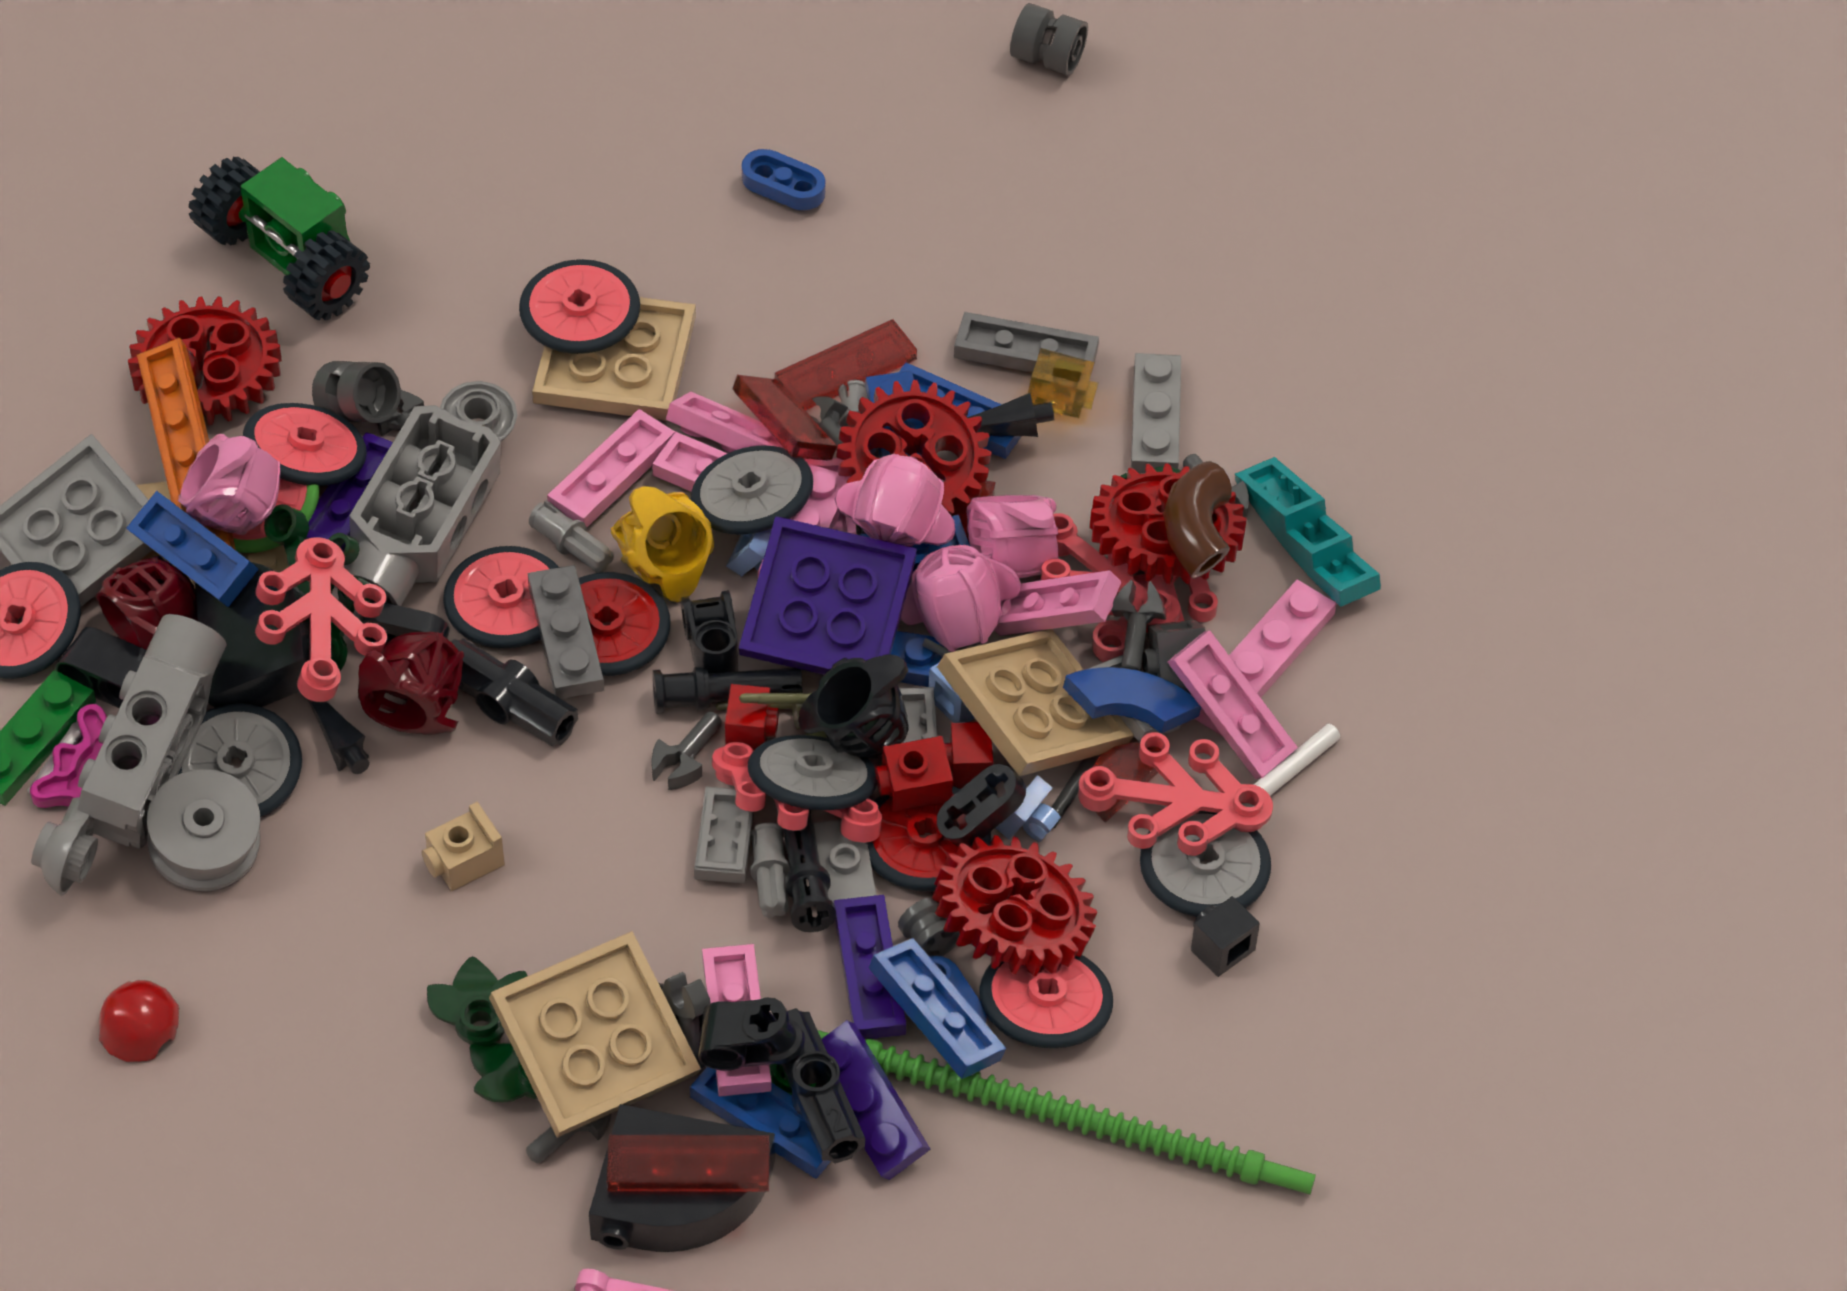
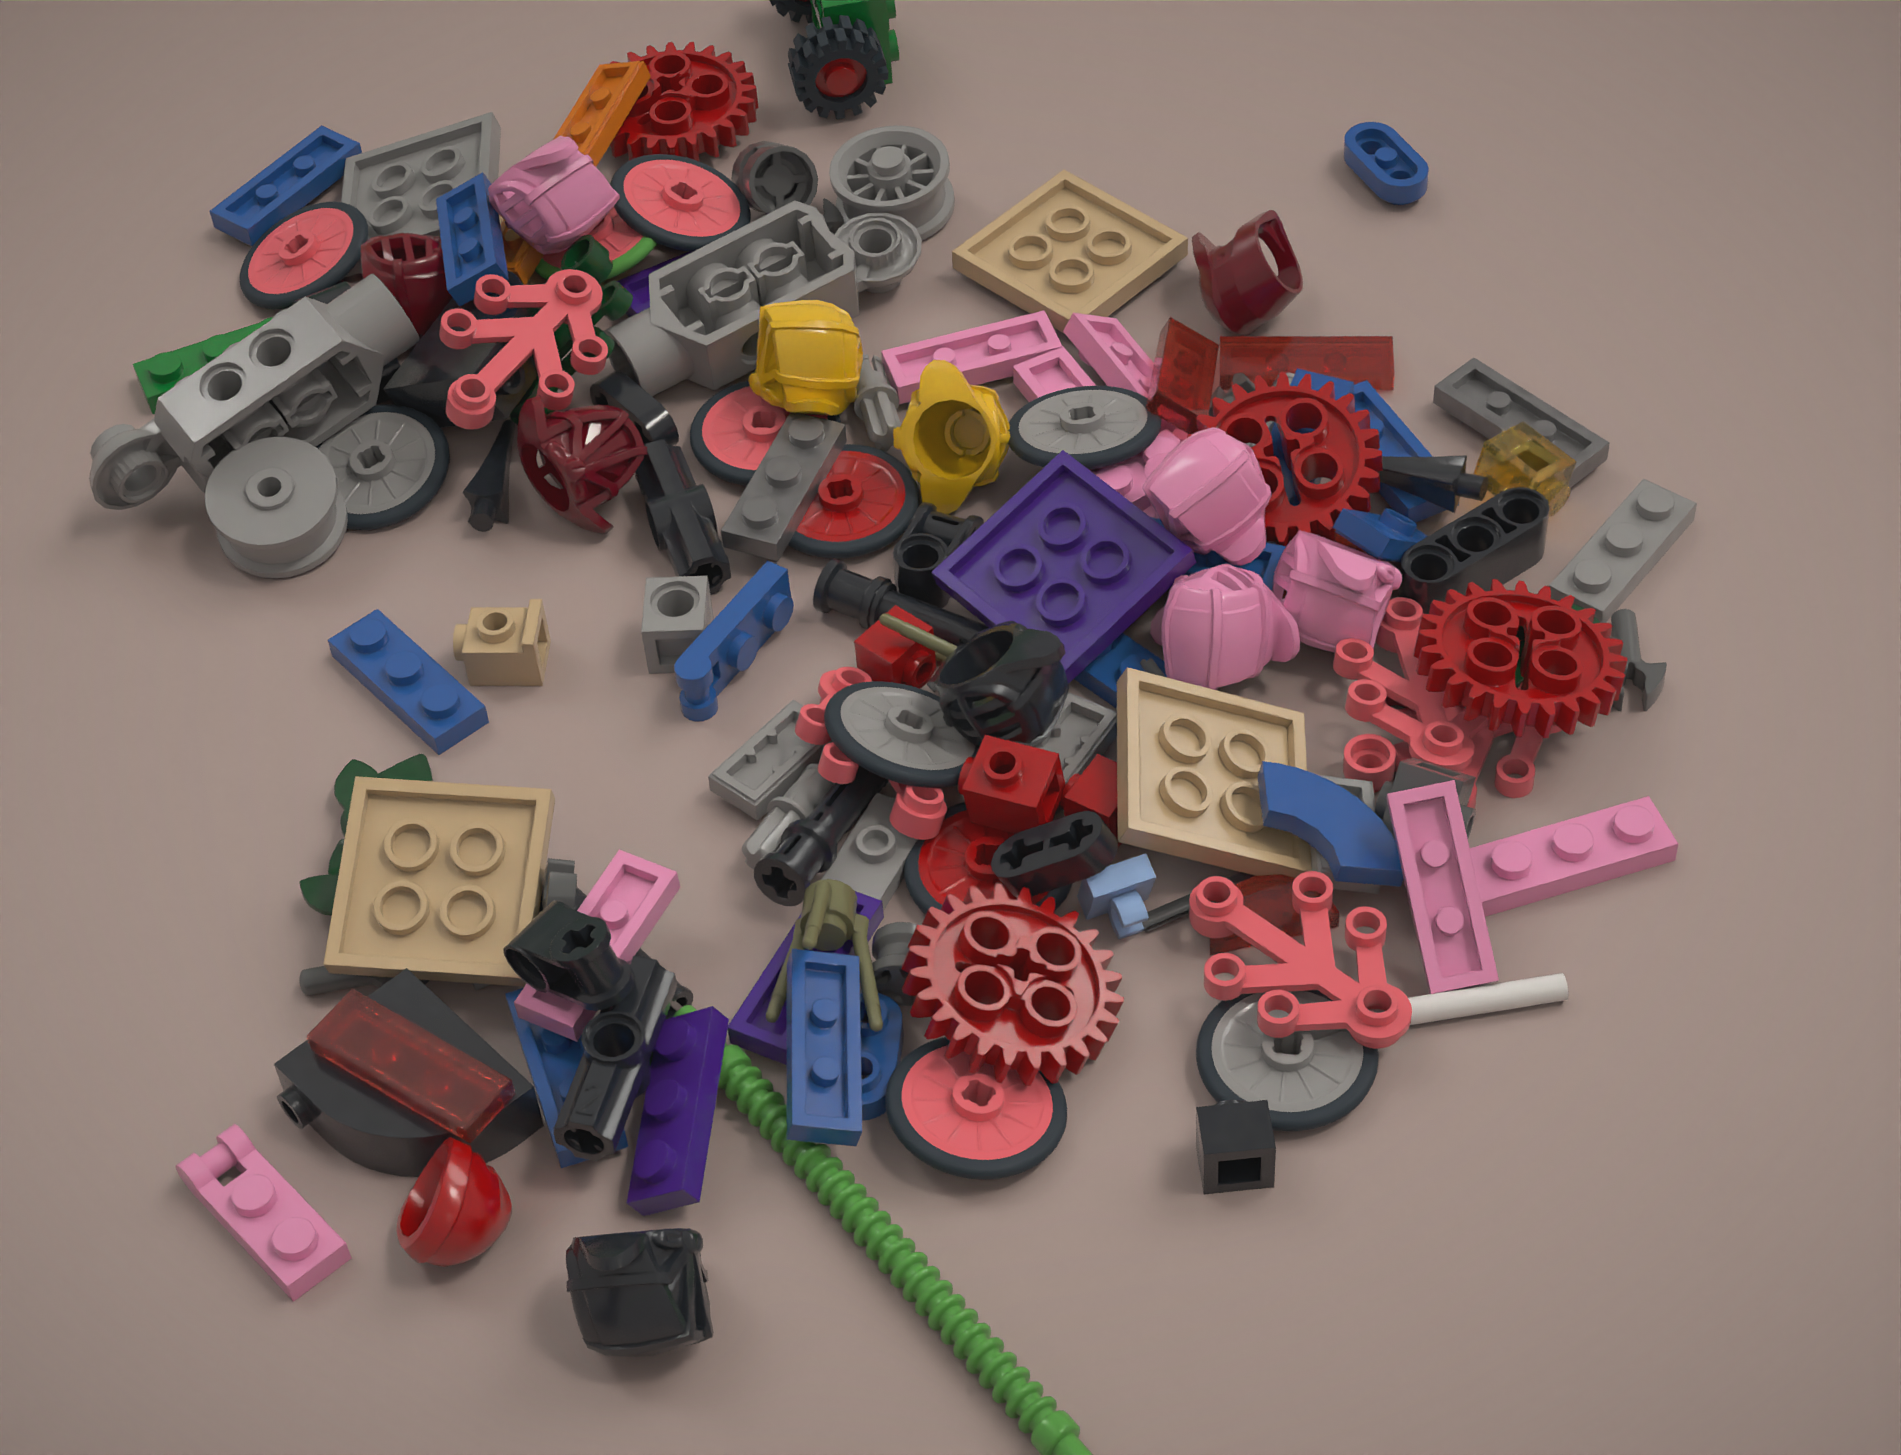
camera: 40 degrees right, 5 degrees down
(138, 1020) = (70, 655): red hair -> none
(408, 910) = (408, 681): none -> blue plate
(440, 349) = (896, 174): none -> light grey wheel
(515, 528) = (807, 357): none -> yellow piece
(579, 788) = (673, 617): none -> light grey brick
(606, 312) = (1061, 190): coral wheel -> none
(628, 767) = (732, 640): none -> blue plate
(689, 769) = (802, 664): dark grey bar -> none
(772, 320) = (1238, 280): none -> dark red helmet
(778, 1239) = (453, 1208): none -> red hat
(875, 926) = (826, 924): none -> olive plant
(949, 1221) = (639, 1291): none -> black piece
(1014, 475) = (1379, 535): none -> blue plate
(1035, 33) = (1791, 134): dark grey wheel -> none
(1059, 603) = (1320, 683): bright pink plate -> none
(1073, 455) = (1482, 545): none -> black beam
(1137, 621) = (1401, 742): dark grey bar -> none
(1190, 517) = (1526, 644): reddish brown cylinder -> none
(1307, 533) = (1705, 753): teal slope -> none

